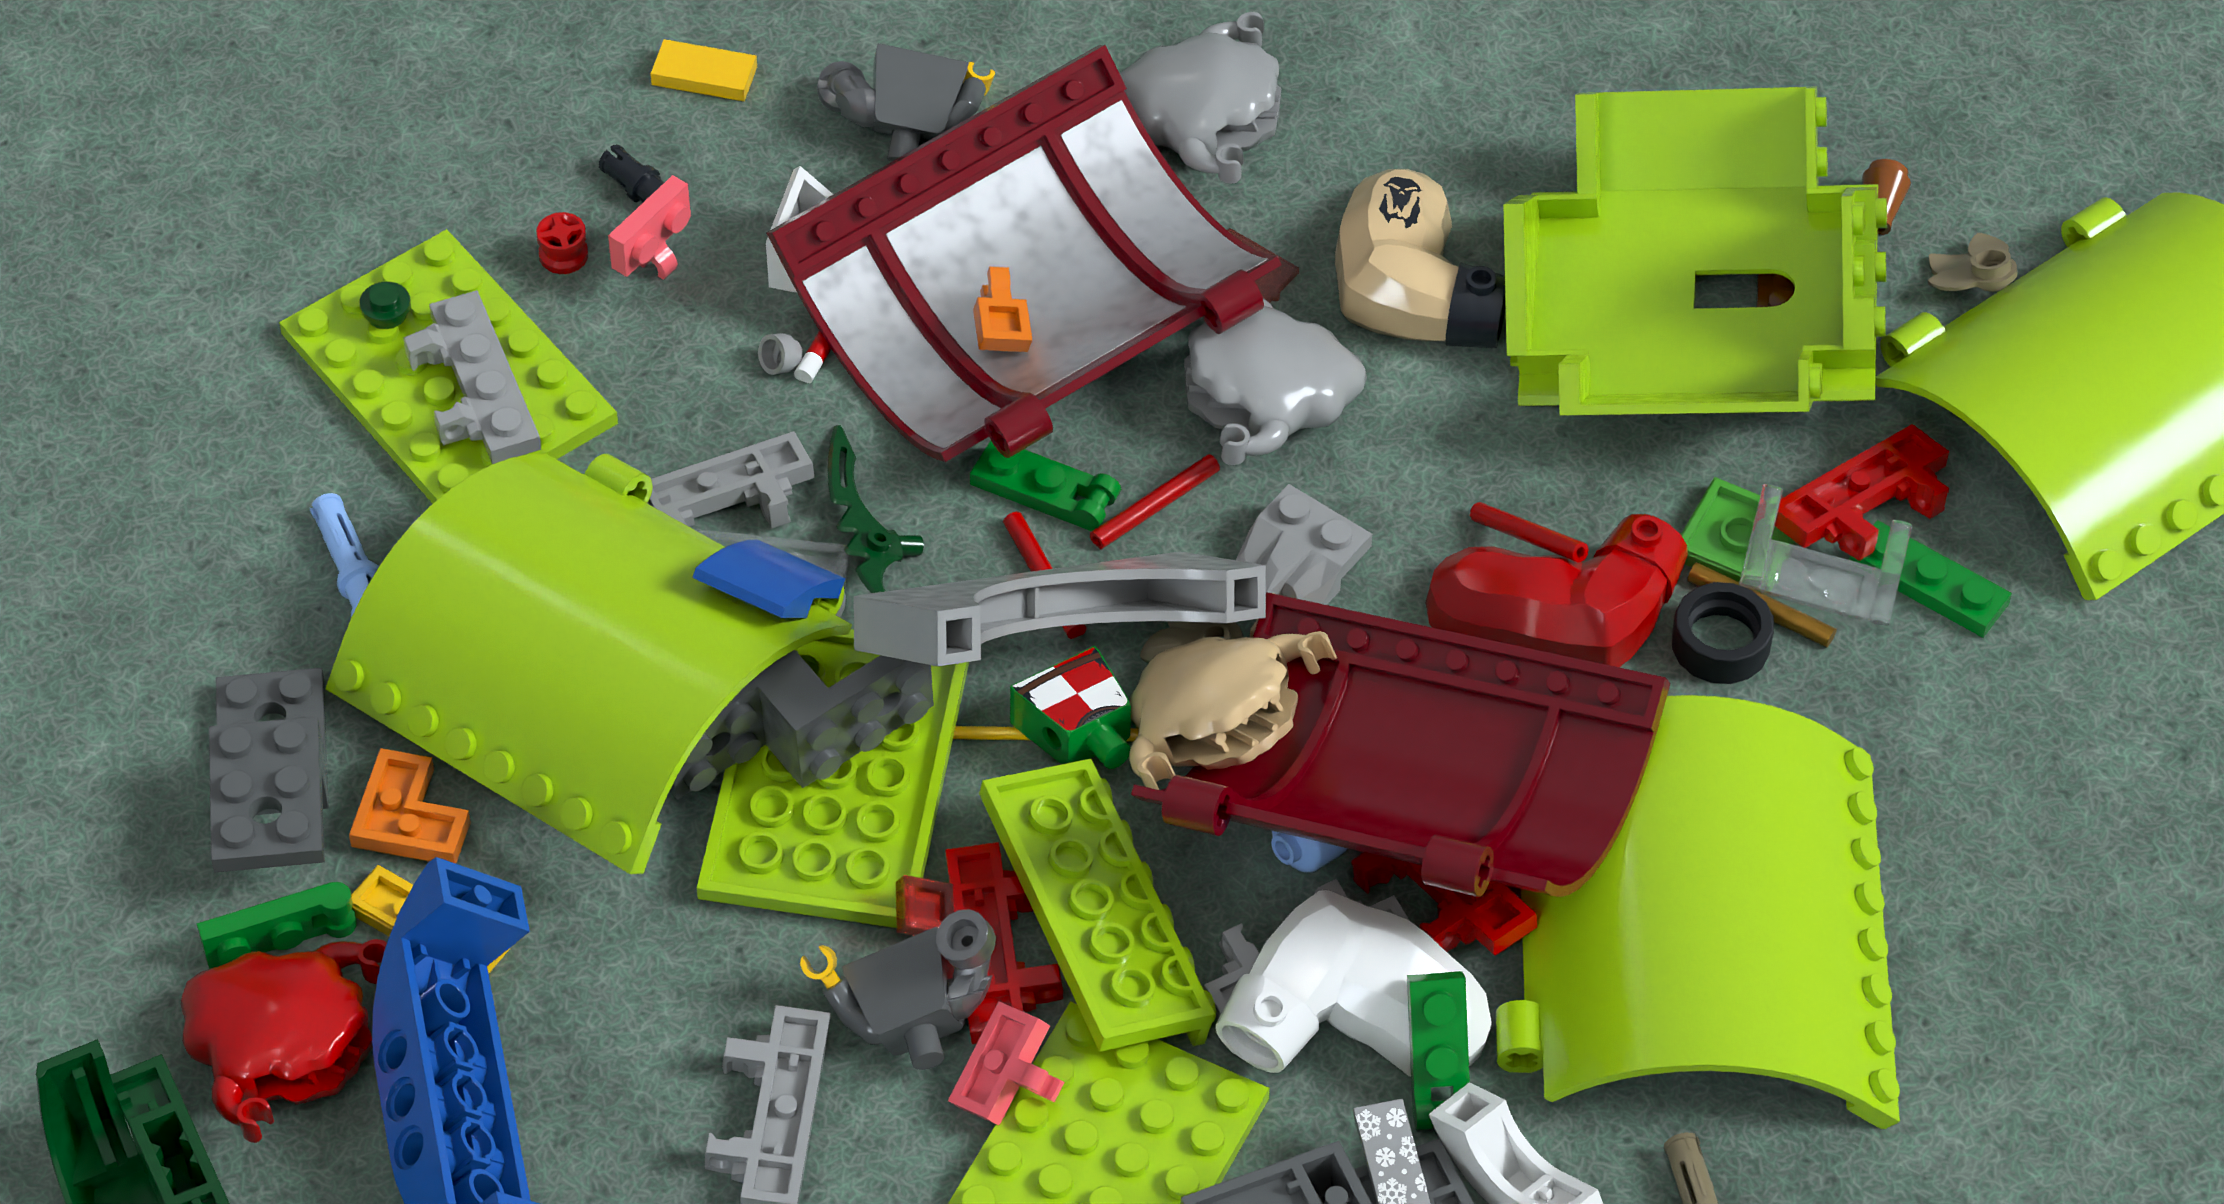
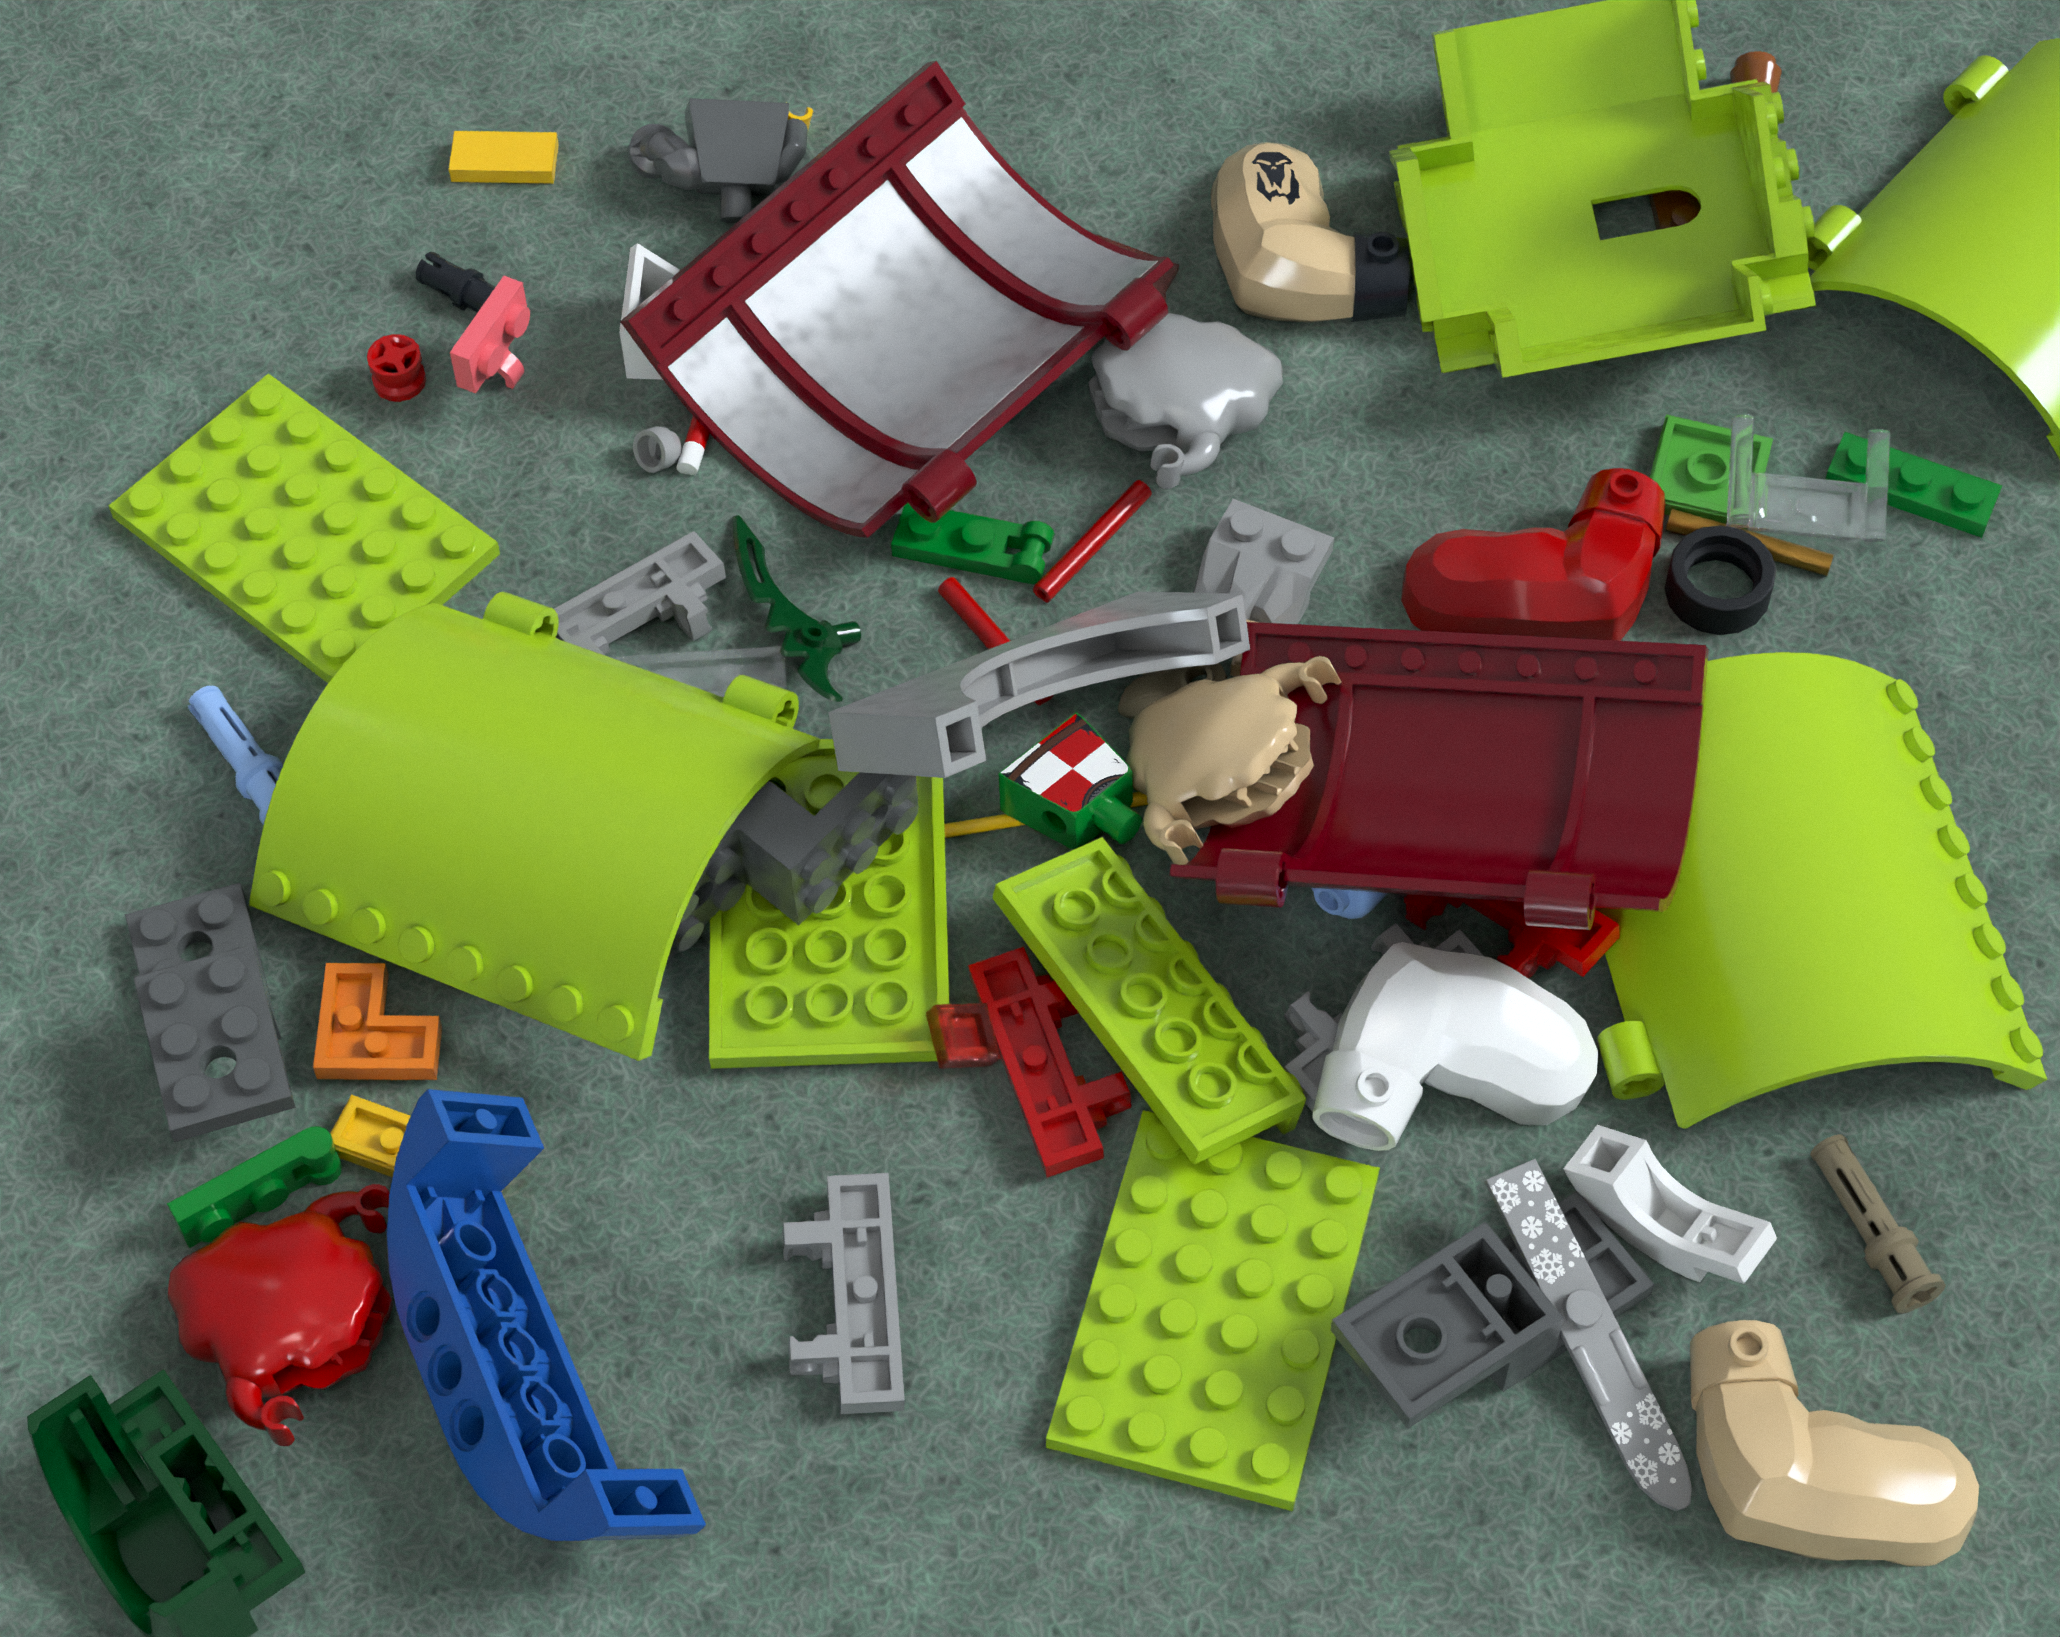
camera: 10 degrees left, 5 degrees up
(385, 304) = (221, 467): dark green plate -> none
(492, 400) = (362, 554): light grey hinge -> none
(768, 578) = (721, 704): blue slope -> none
(914, 988) = (975, 1129): dark grey torso -> none
(998, 318) = (887, 373): orange plate -> none
(1004, 1064) = (1091, 1197): coral plate -> none
(1209, 95) = (1046, 97): light grey piece -> none
(1436, 1039) = (1553, 1086): green plate -> none
(1529, 532) = (1497, 507): red piece -> none
(1838, 499) = (1804, 416): red hinge -> none
(1984, 266) = (1877, 146): dark tan plate -> none

